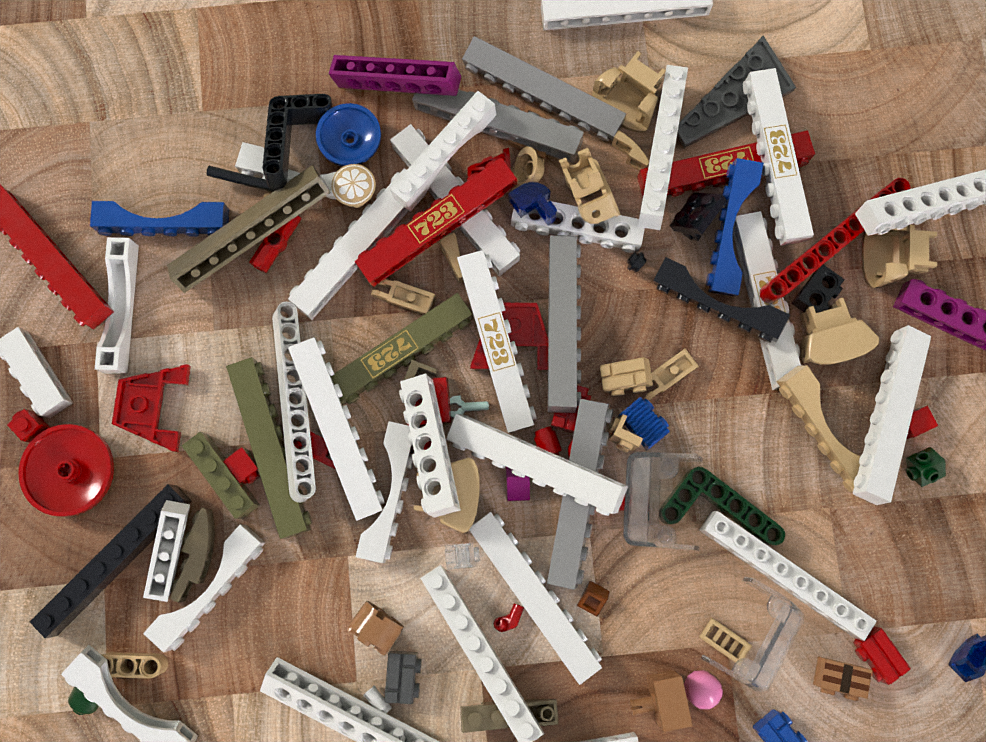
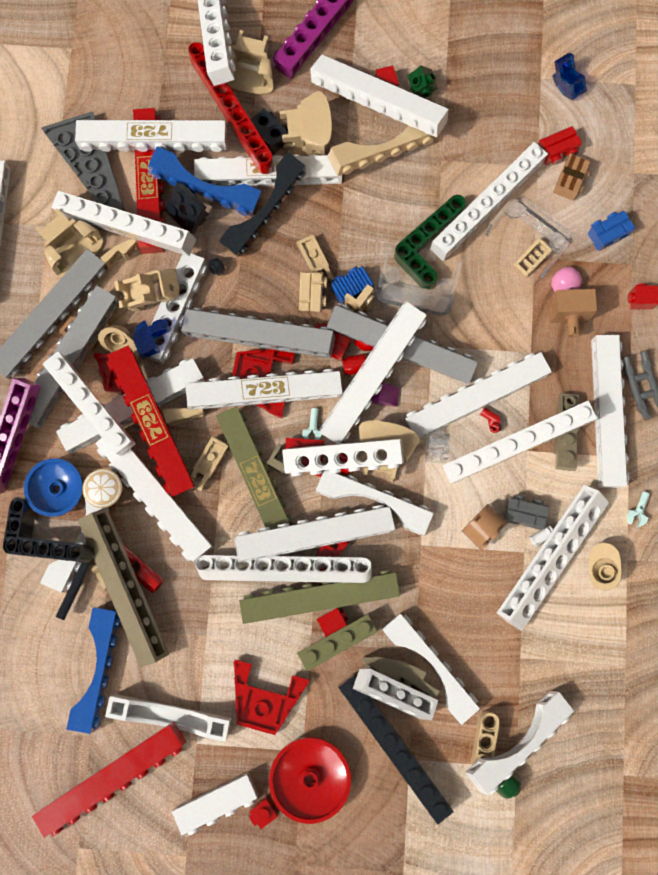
camera: 80 degrees left, 0 degrees up
(593, 598) = (485, 351): dark orange slope -> none

